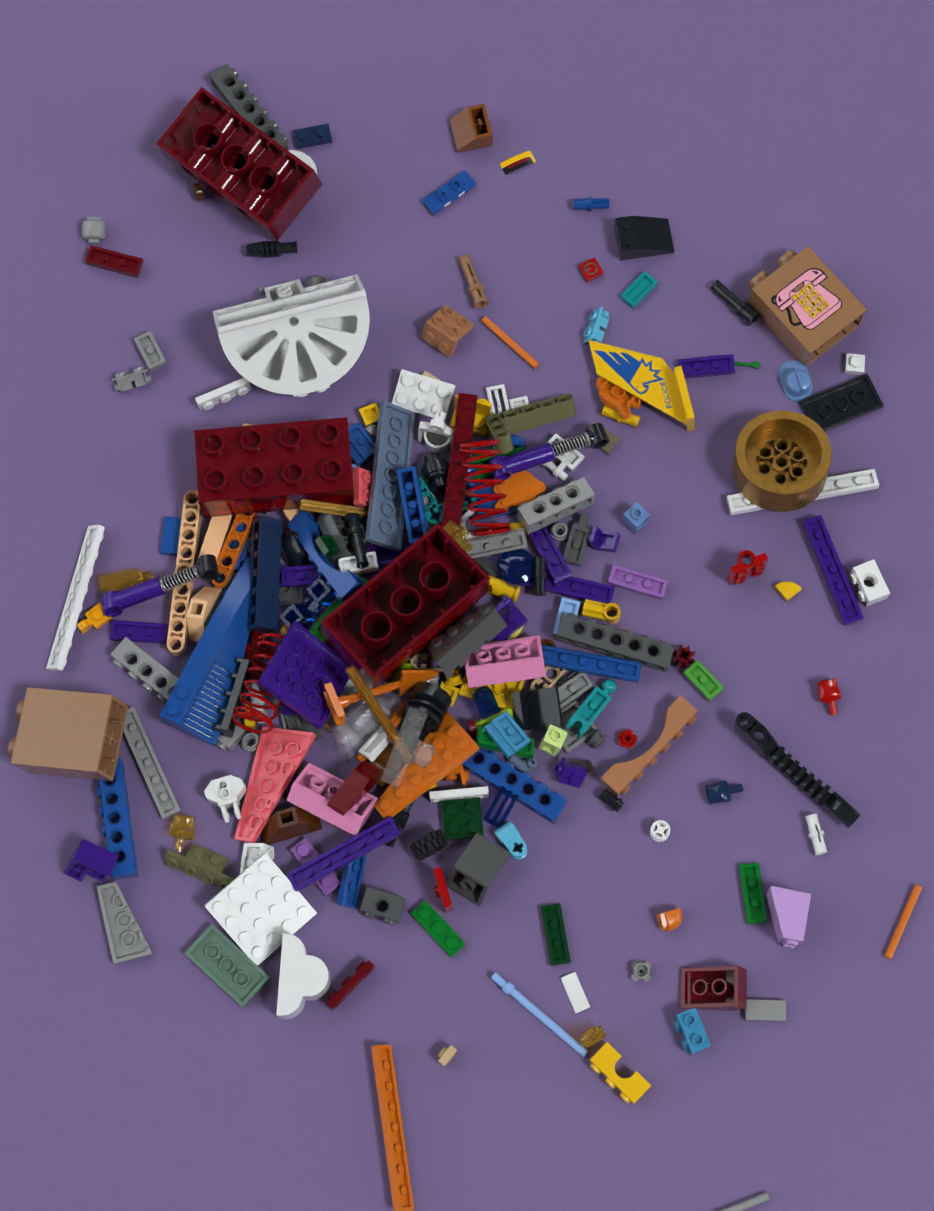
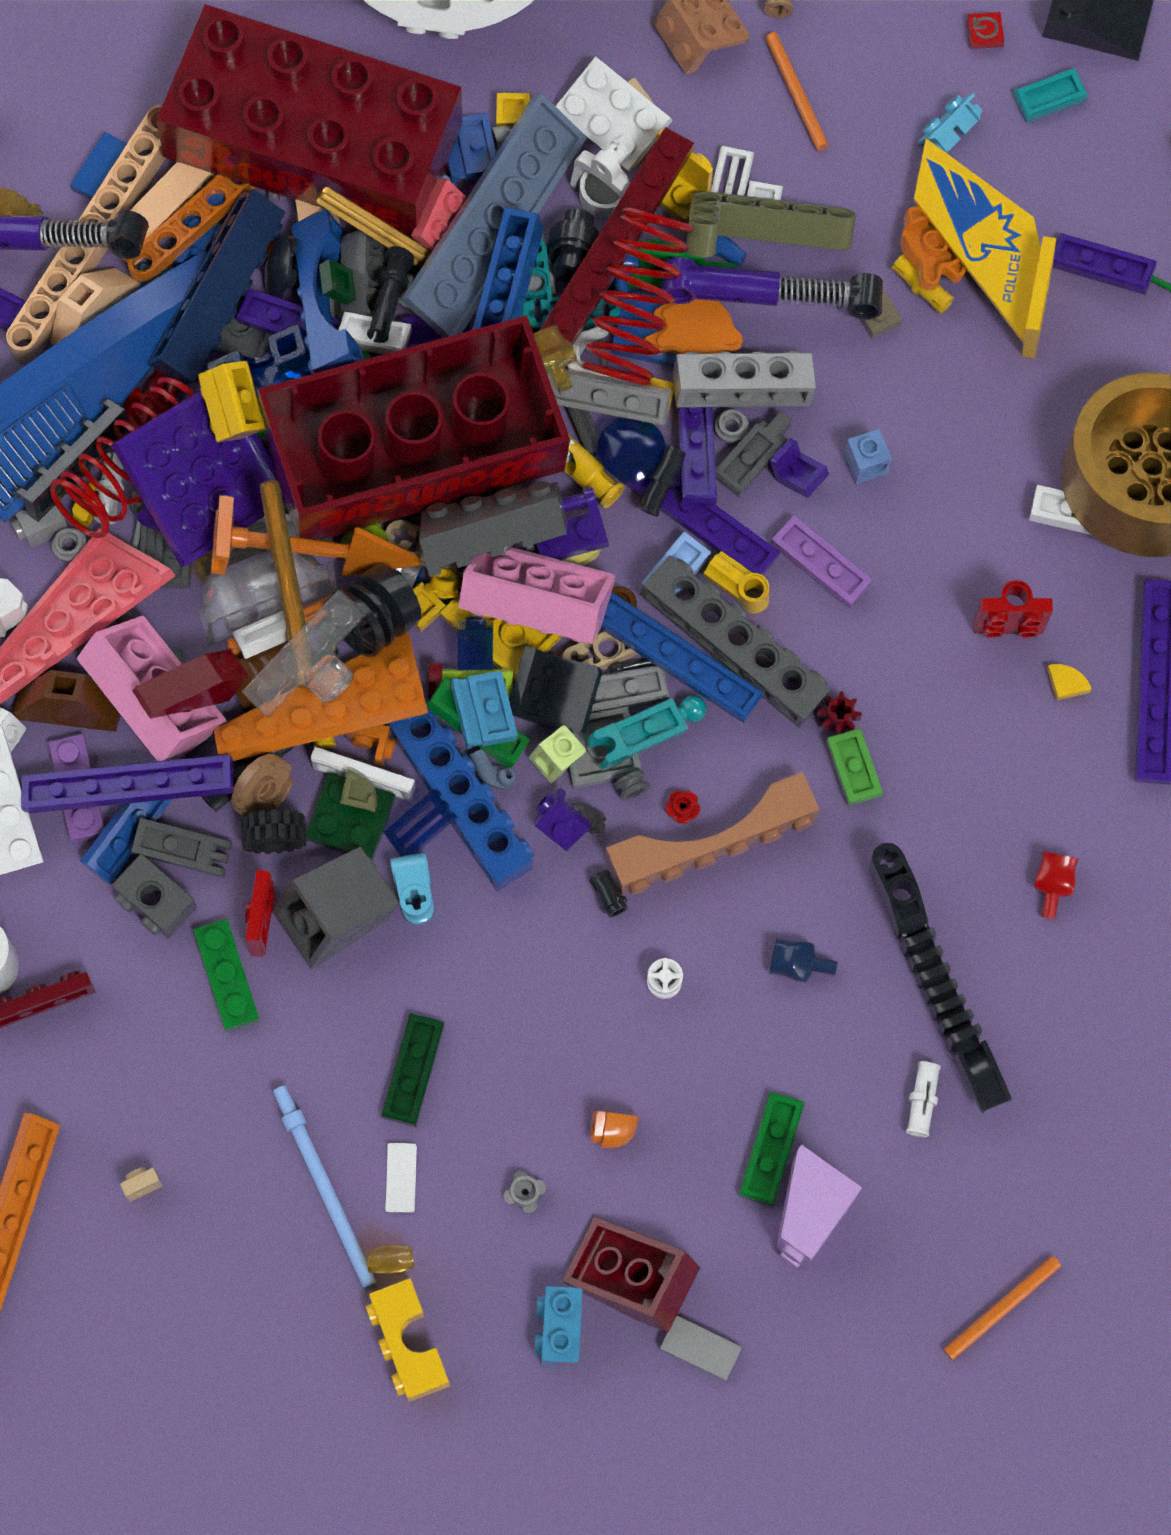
camera: 20 degrees right, 0 degrees up
(307, 633) = (231, 401): none -> yellow brick
(383, 874) = (180, 847): none -> dark grey hinge
(412, 824) = (262, 785): none -> medium nougat plate
(462, 804) = (358, 791): none -> olive tile
(567, 461) = (801, 318): white plate -> none

